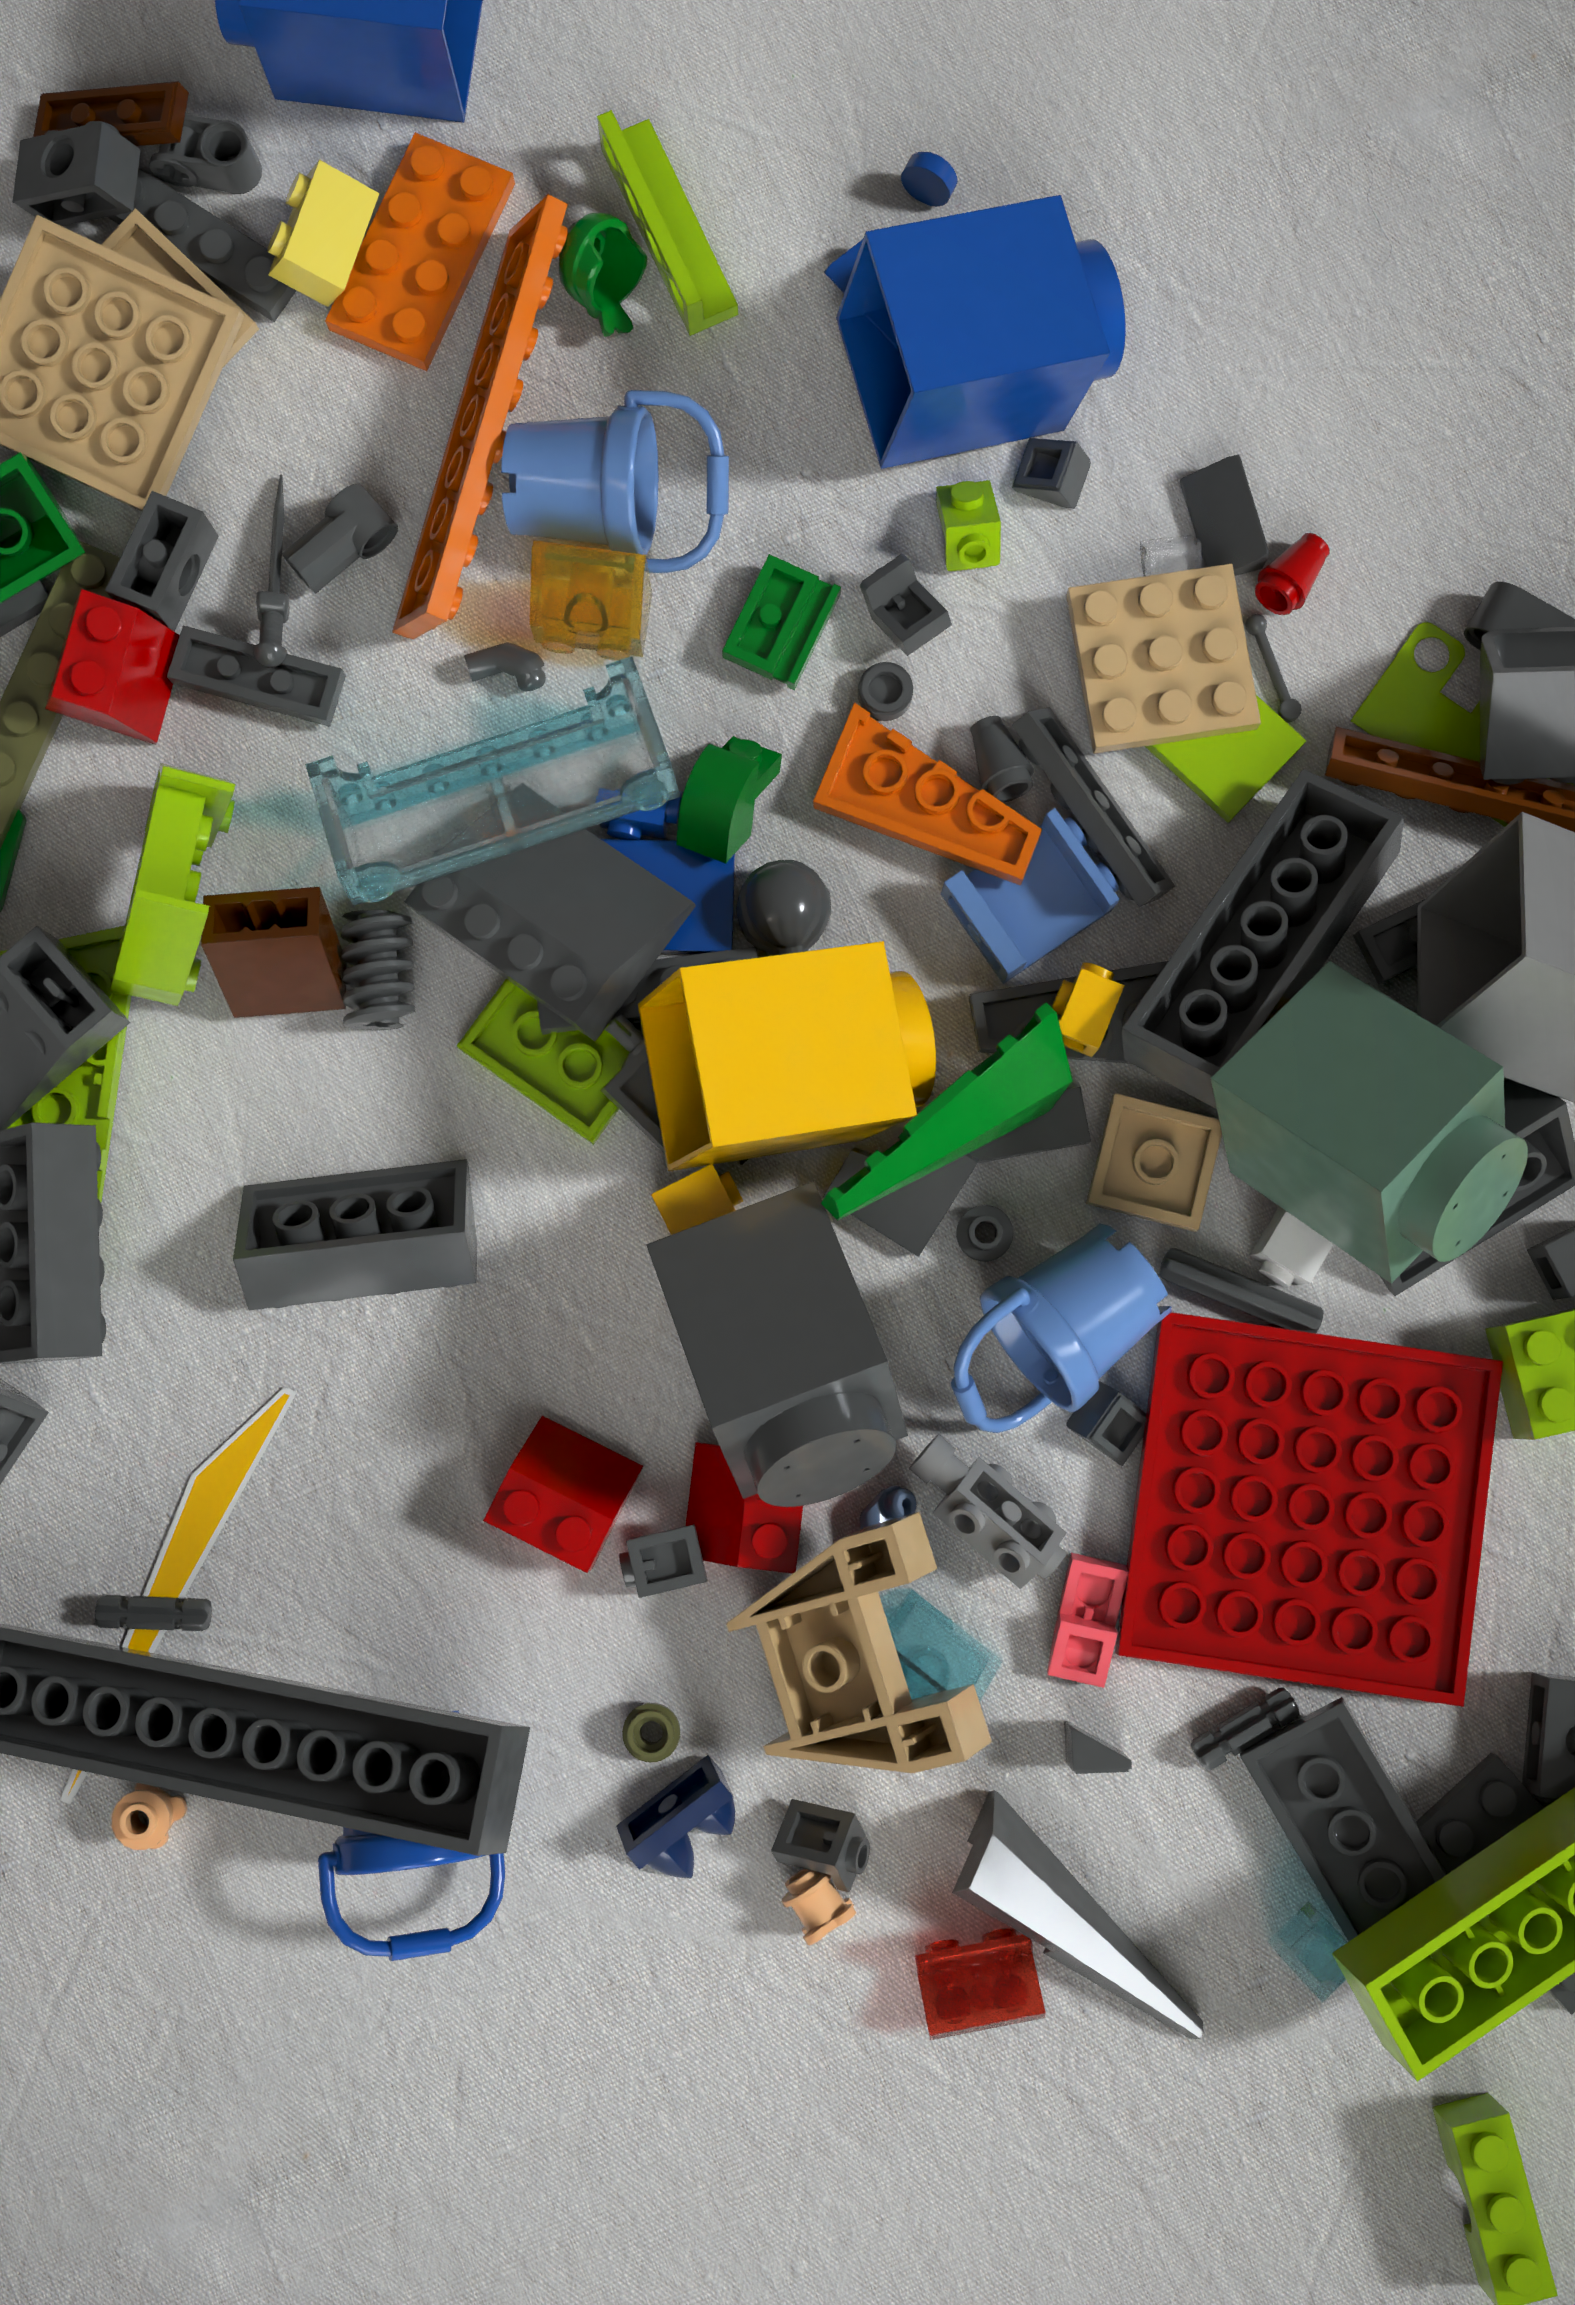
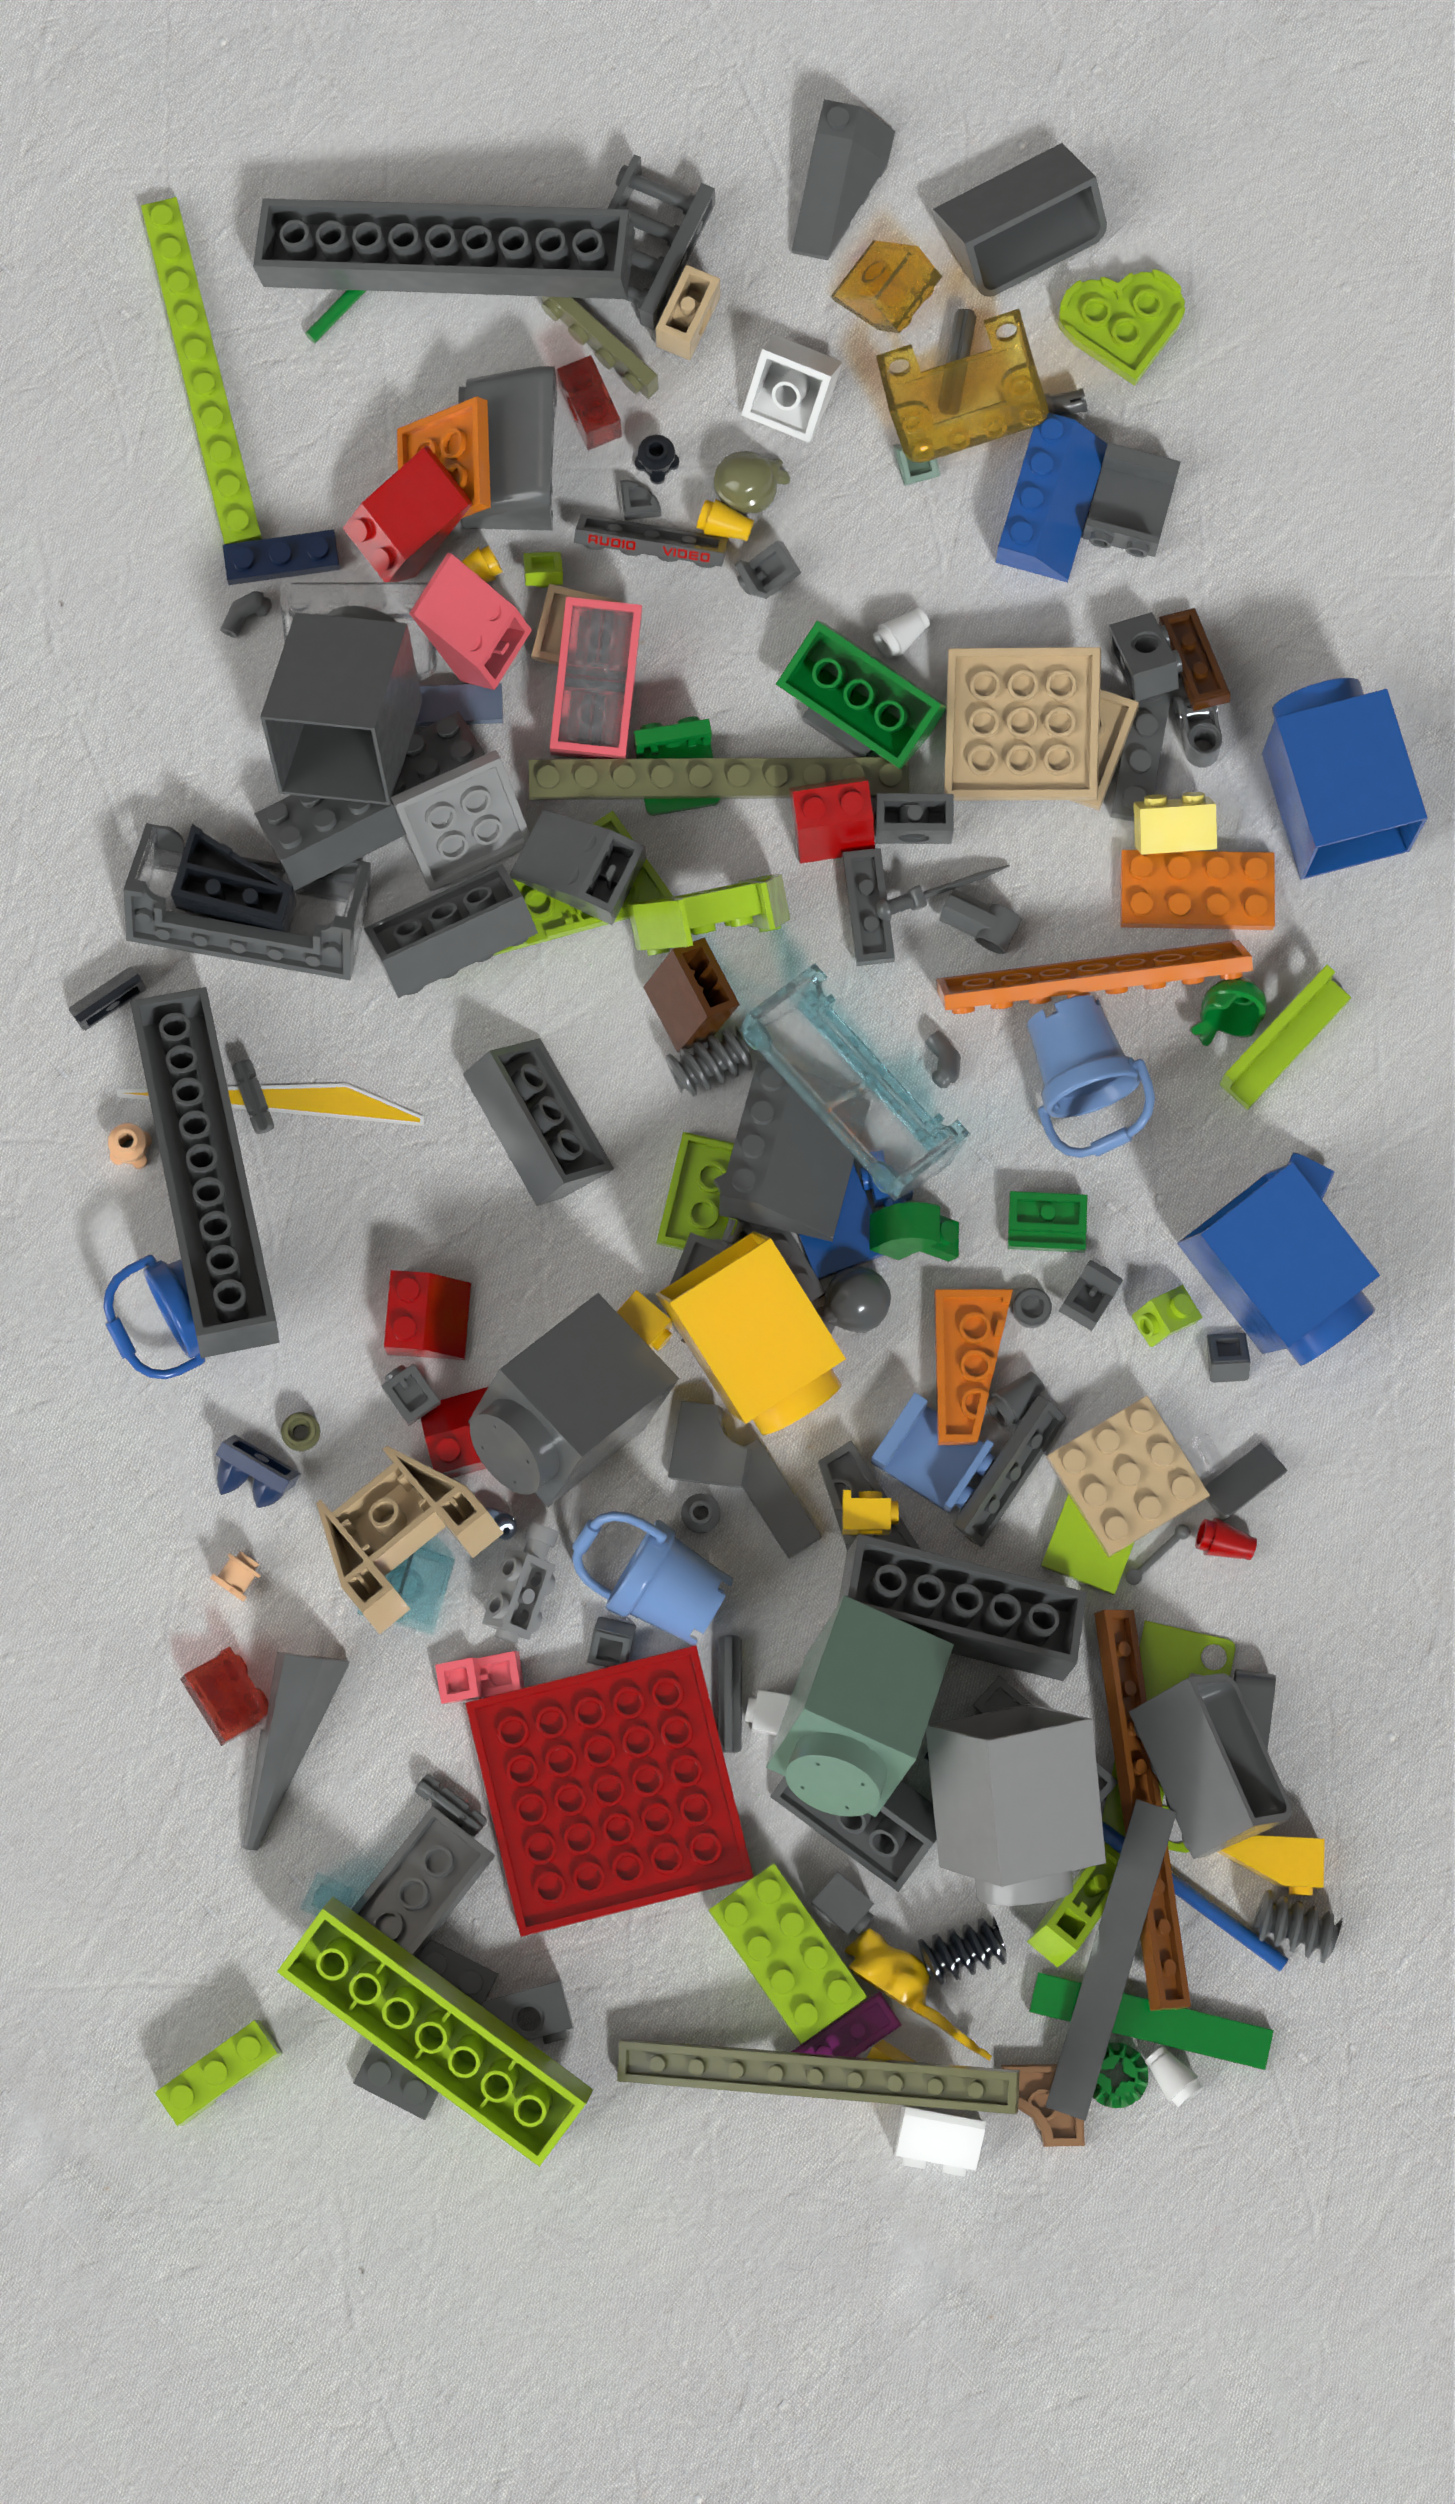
camera: 70 degrees right, 5 degrees down
(589, 600) = (1002, 1094): clear yellow slope -> none
(822, 1842) = (276, 1564): dark grey bracket -> none
(929, 178) = (1391, 1195): blue tile -> none
(980, 1106) = (781, 1474): green wedge -> none
(1092, 1755) = (397, 1710): dark grey slope -> none
(1155, 1162) = (790, 1602): tan plate -> none

